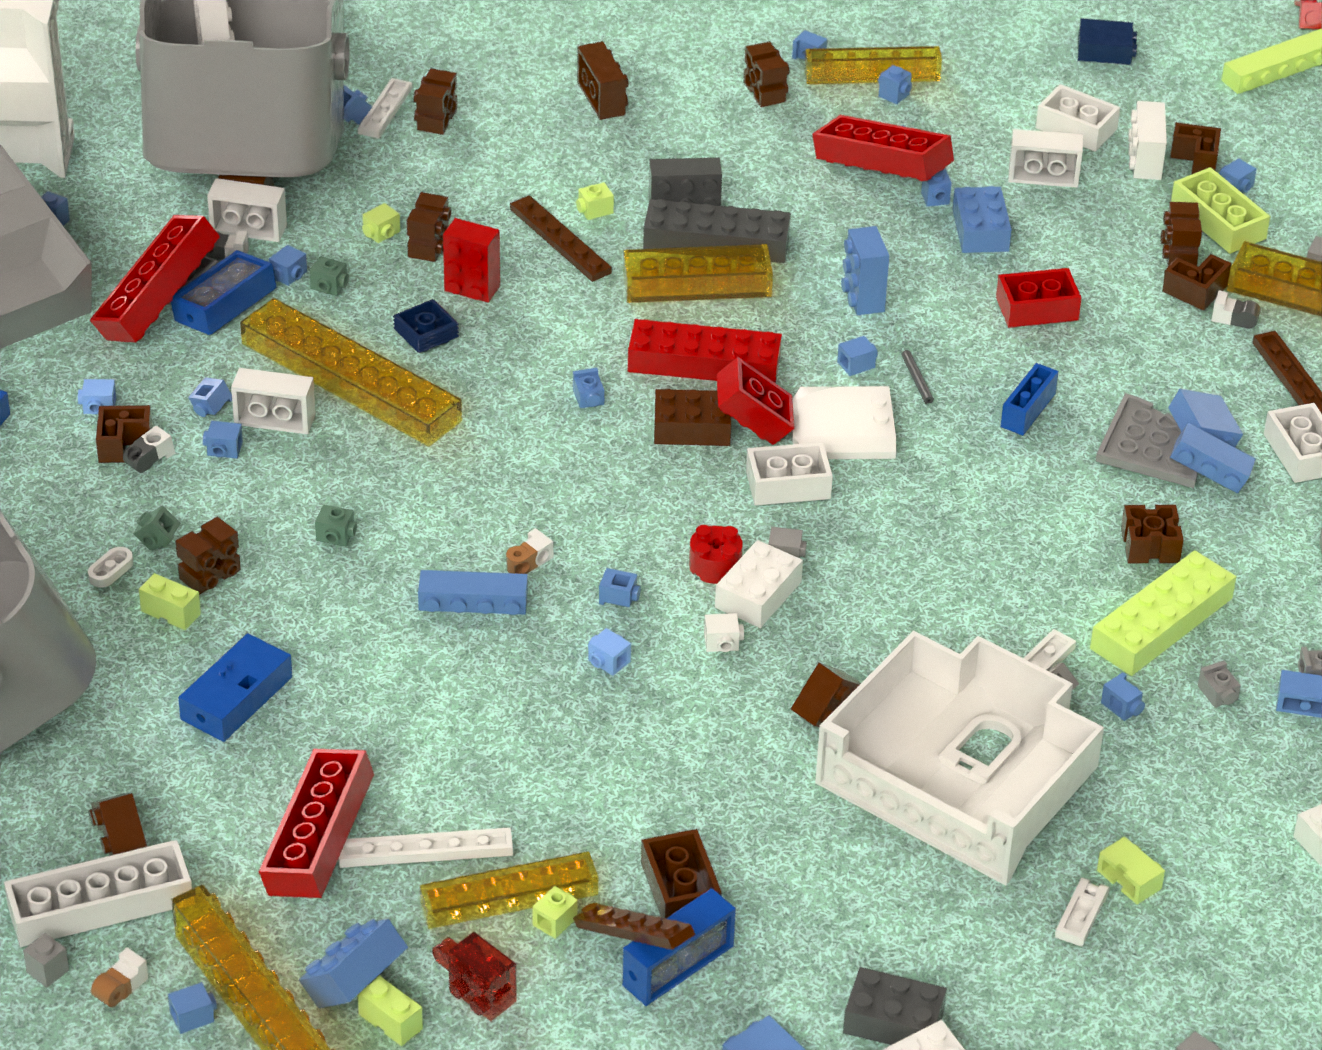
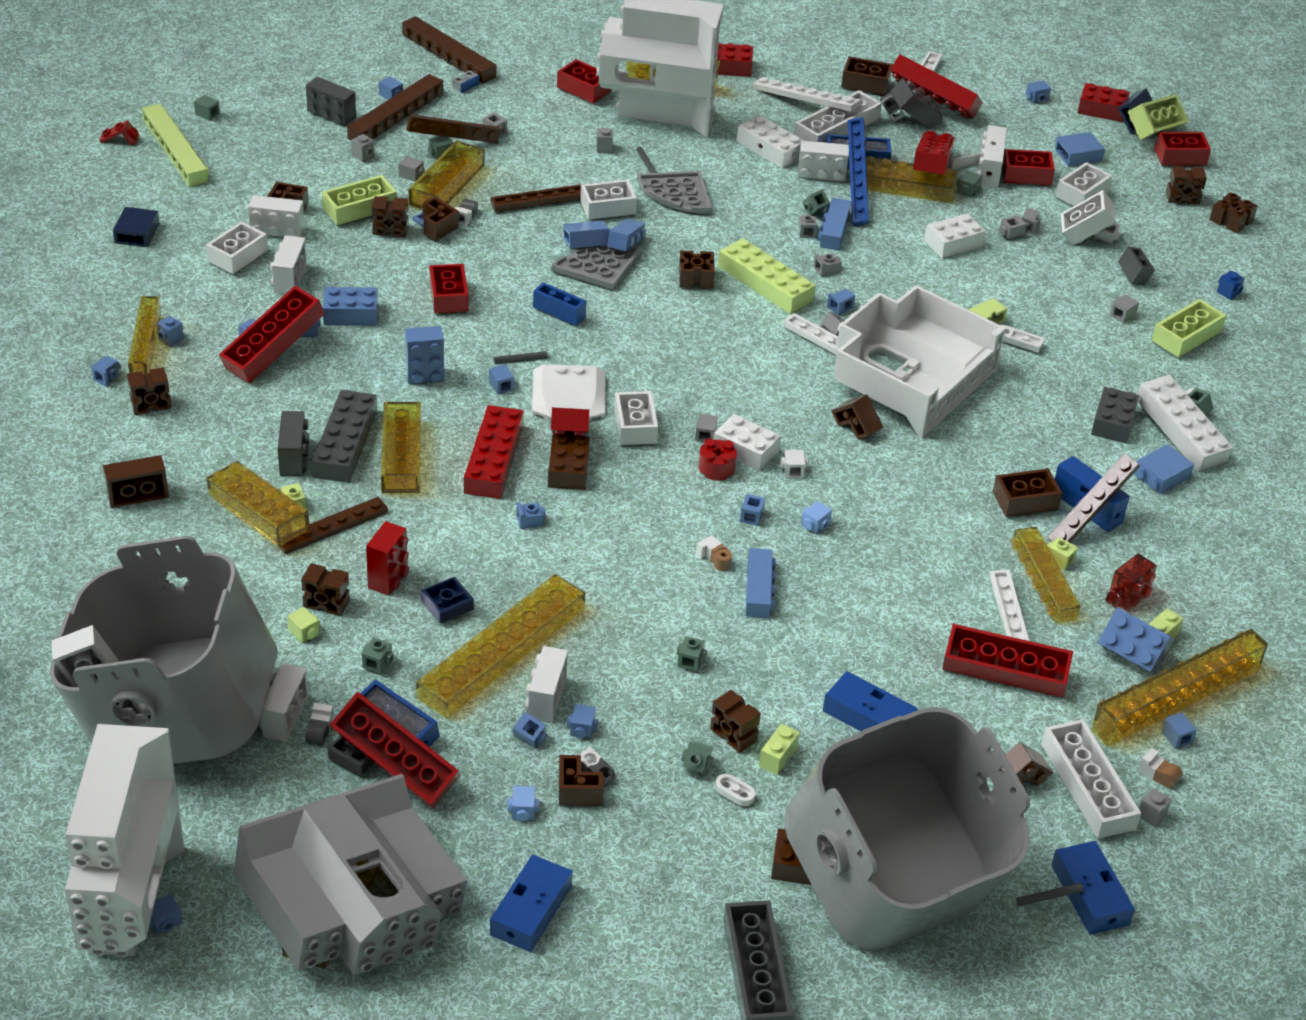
camera: 90 degrees left, 0 degrees up
(288, 265) = (352, 681): medium blue brick -> none
(586, 162) = (258, 503): none -> clear yellow brick
(1239, 174) = (315, 189): medium blue brick -> none

